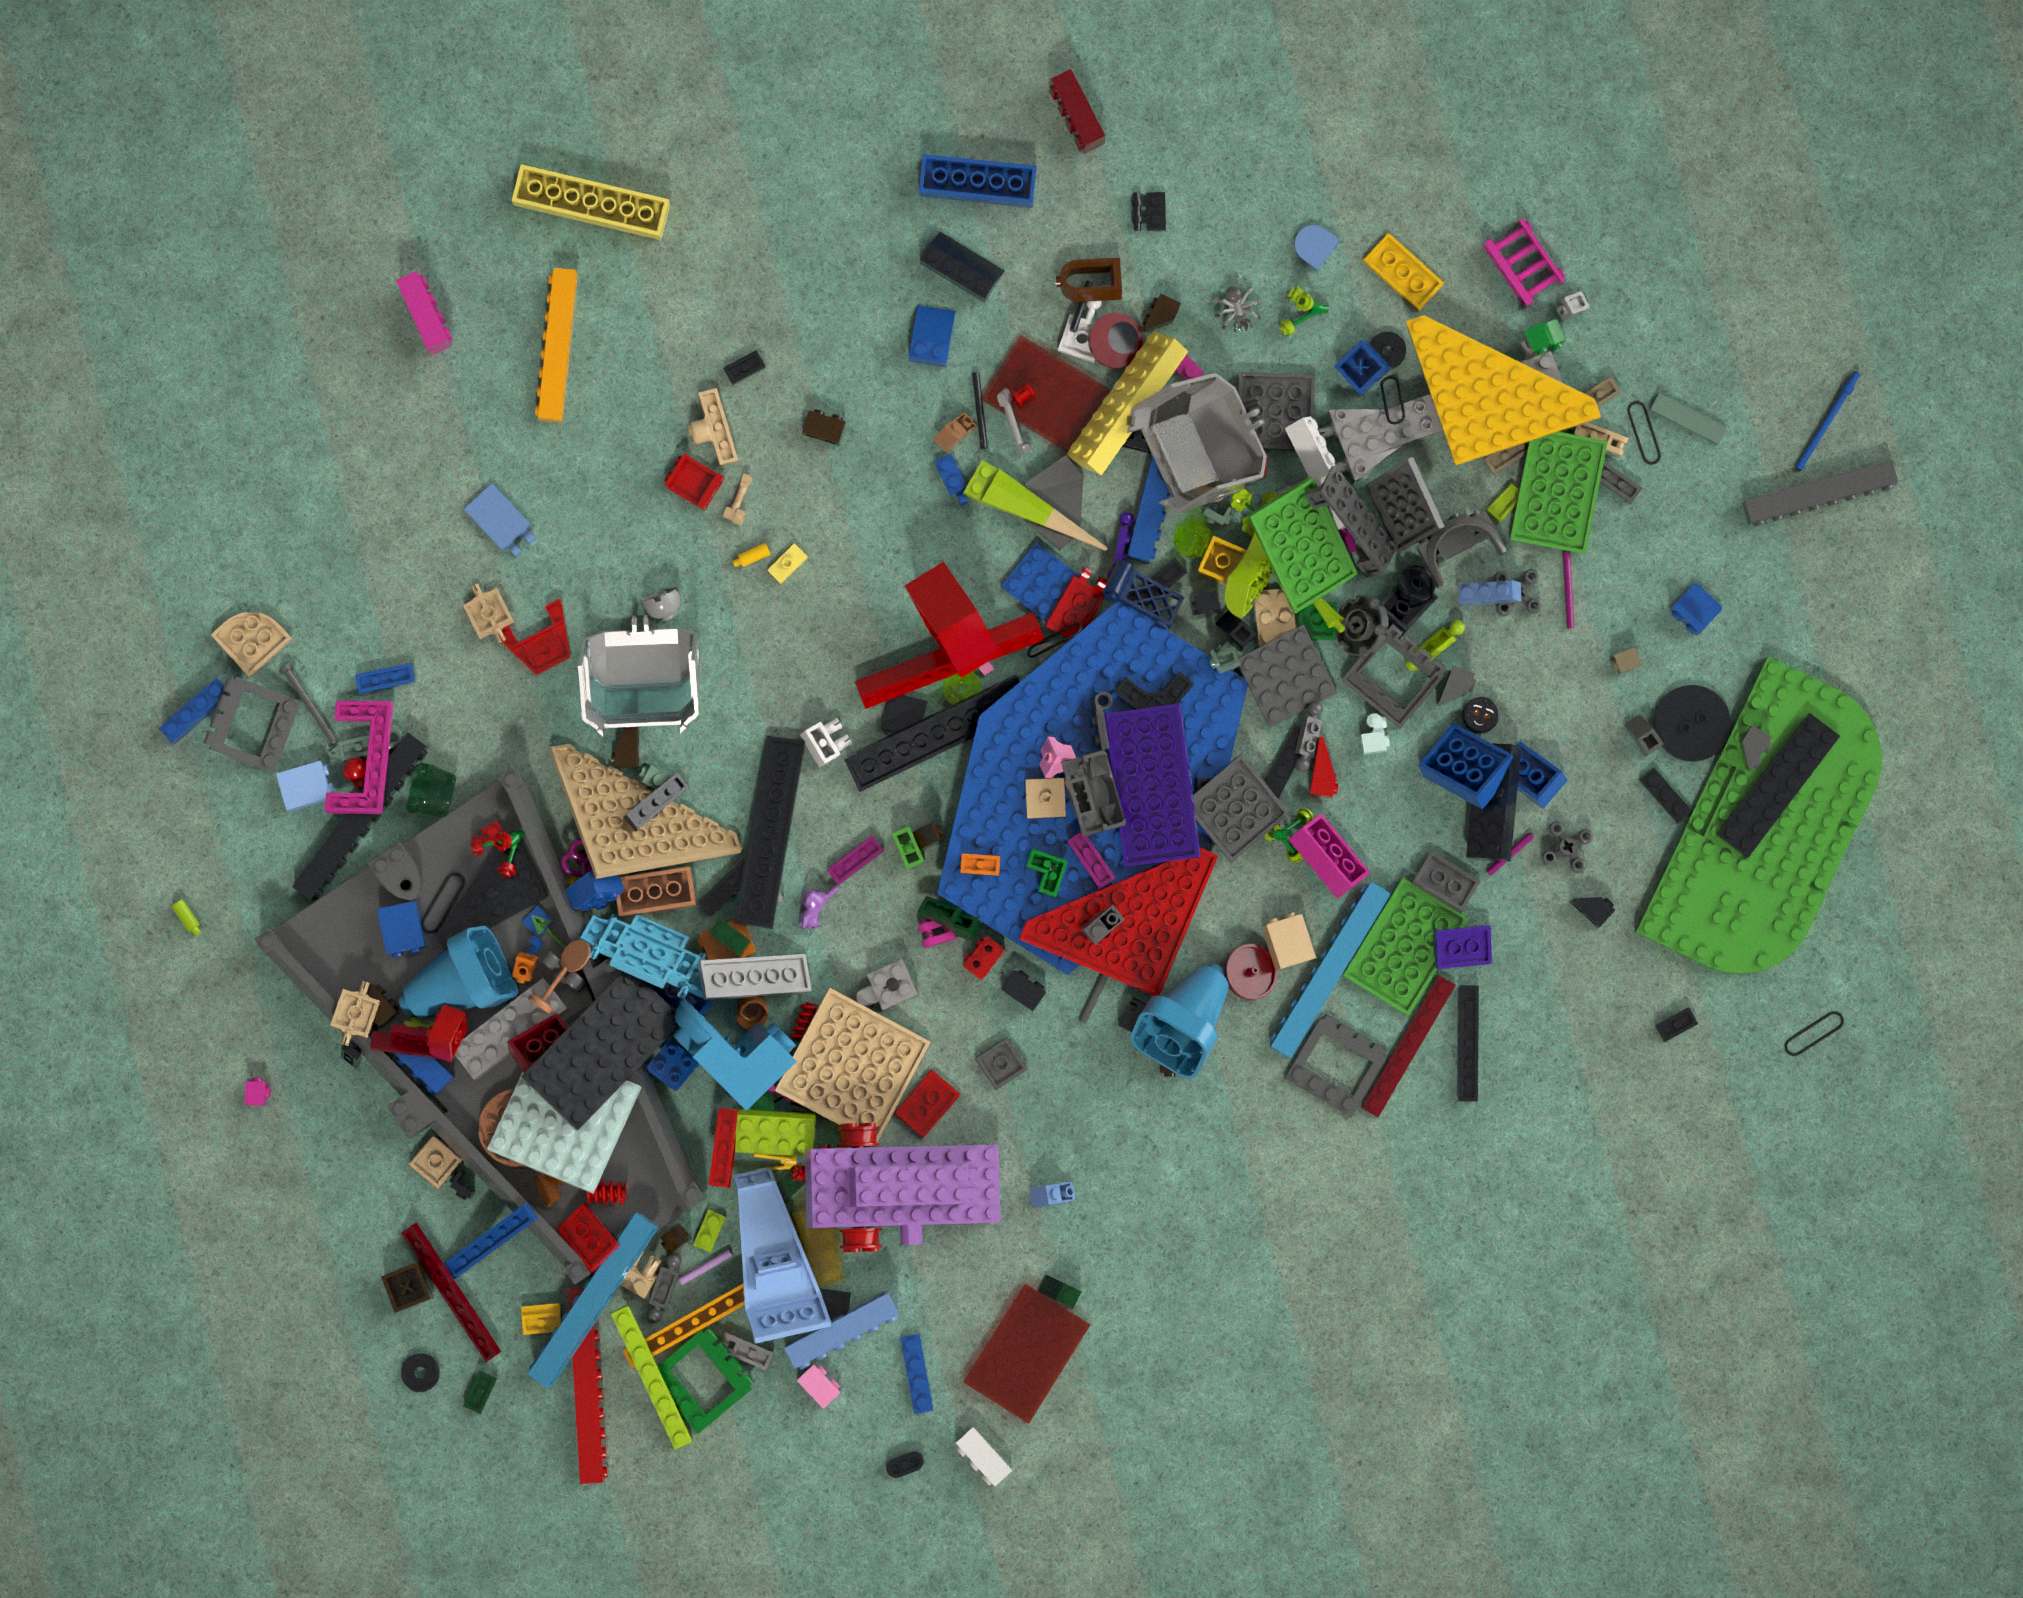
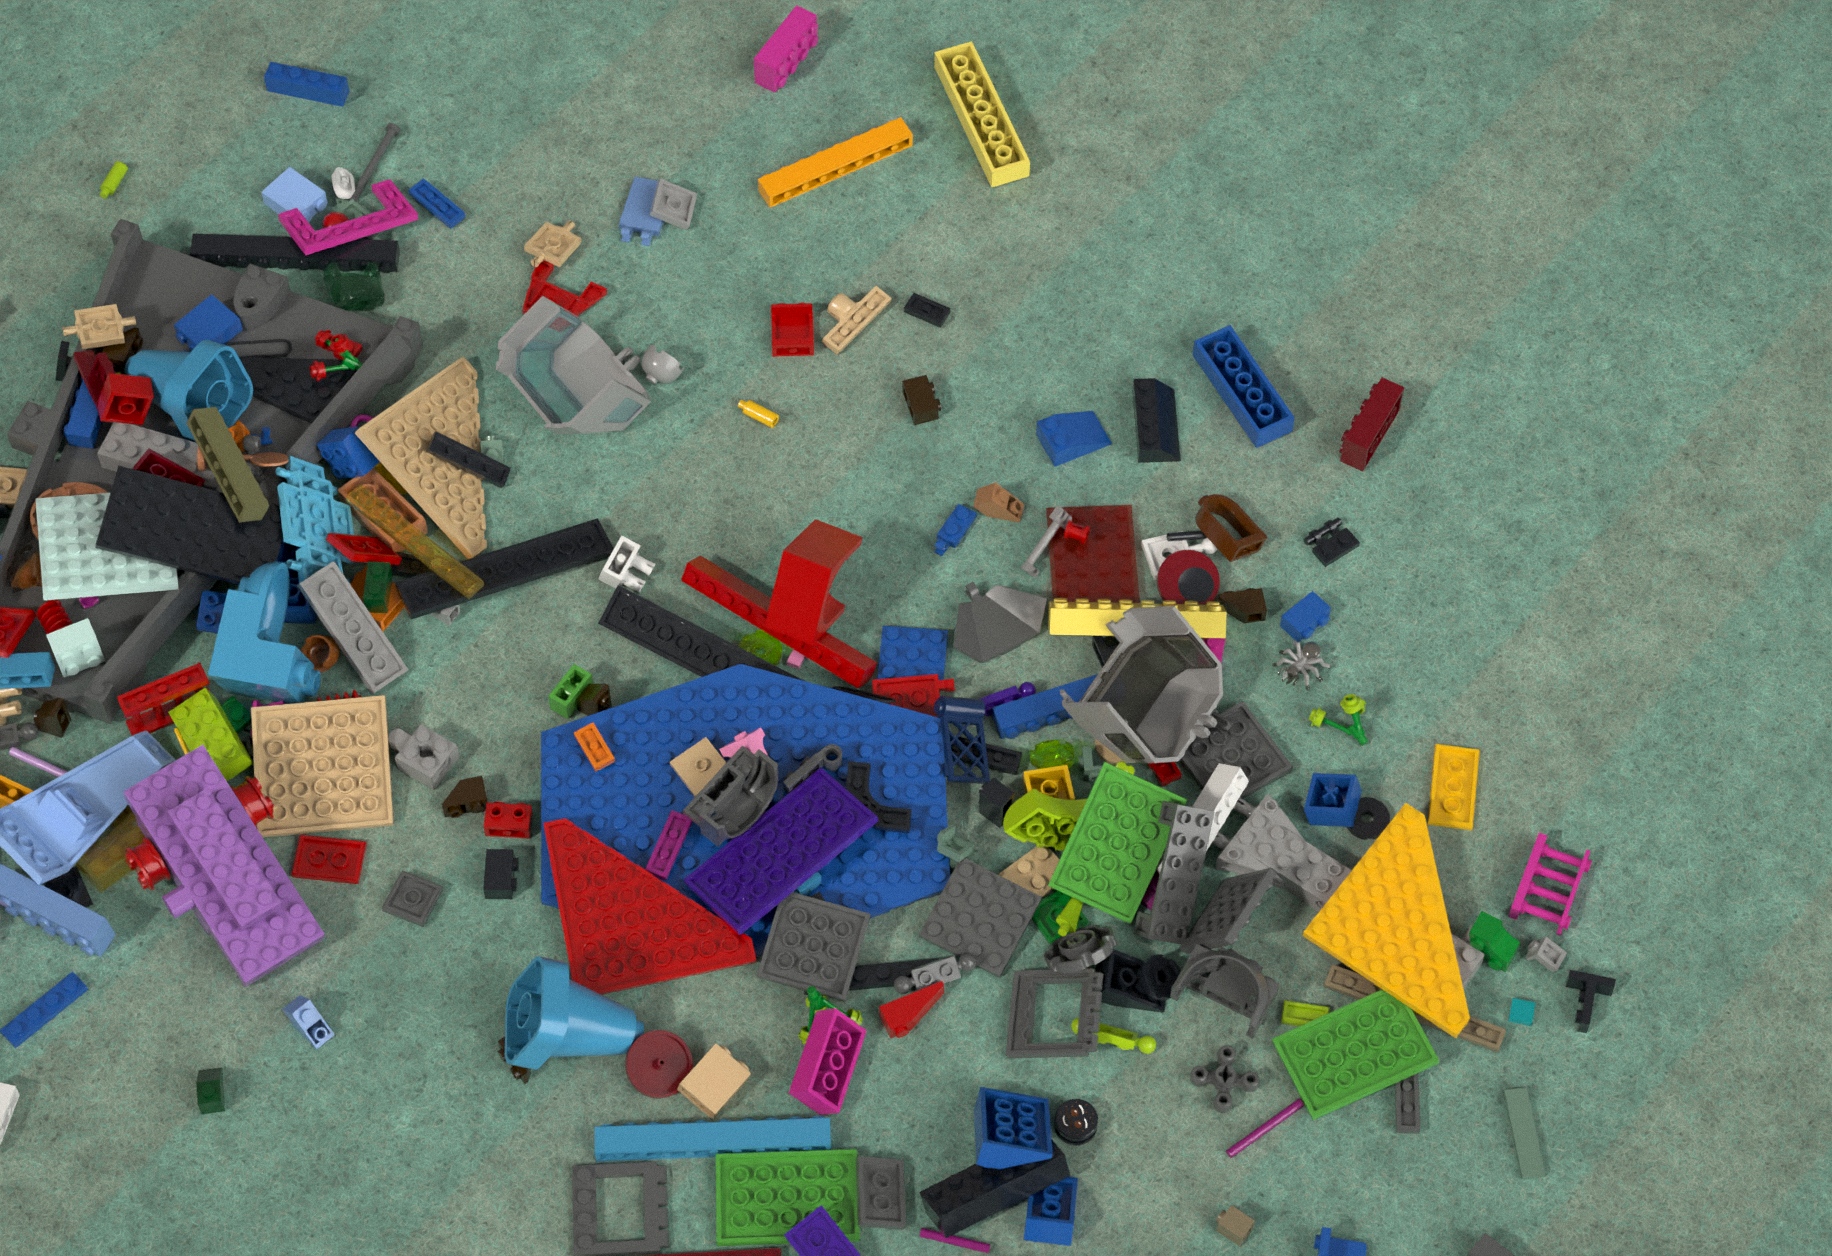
camera: 55 degrees right, 25 degrees down
(251, 640) = (400, 91): tan plate -> none
(278, 733) = (330, 153): dark grey hinge -> none
(317, 740) = (343, 183): none -> white plate
(514, 497) = (673, 204): none -> light grey plate
(538, 922) = (286, 431): piece -> none
(569, 992) = (227, 464): none -> olive brick
(627, 749) = (507, 416): dark brown slope -> none
(641, 1191) = (75, 648): none -> light aqua brick
(688, 928) = (363, 548): none -> red tile
(709, 887) = (415, 541): none -> clear yellow plate
(709, 1231) = (78, 746): lime plate -> none
(734, 512) = (787, 379): tan brick -> none
(787, 563) = (772, 445): light yellow plate -> none
(813, 904) = (460, 646): medium lavender animal -> none
(855, 860) = (529, 658): magenta plate -> none
(903, 712) = (703, 613): black tile -> none
(927, 927) = (507, 754): dark pink brick -> none
(944, 974) = (466, 797): none -> dark brown slope
(950, 917) = (526, 762): dark green slope -> none
(979, 410) = (1035, 515): black bar -> none
(1002, 492) = (972, 569): lime plate -> none
(1026, 1353) = (126, 1096): clear red plate -> none
(1052, 869) = (634, 814): green brick -> none
(1093, 998) = (534, 943): dark grey bar -> none
(1101, 924) = (607, 885): dark grey slope -> none
(1201, 277) = (1305, 617): none -> blue brick
(1236, 629) = (992, 848): black slope -> none
(1315, 245) = (1415, 696): medium blue tile -> none
(1376, 740) = (978, 1040): light aqua brick -> none
(1400, 398) = (1323, 851): black piece -> none
(1456, 685) = (1084, 1074): dark grey slope -> none
(1489, 593) = (1203, 1046): medium blue brick -> none
(1593, 431) = (1445, 1064): tan plate -> none
(1601, 353) = (1521, 1012): none -> teal tile
(1623, 302) = (1588, 986): none -> black bracket
(1651, 429) = (1470, 1094): black piece -> none

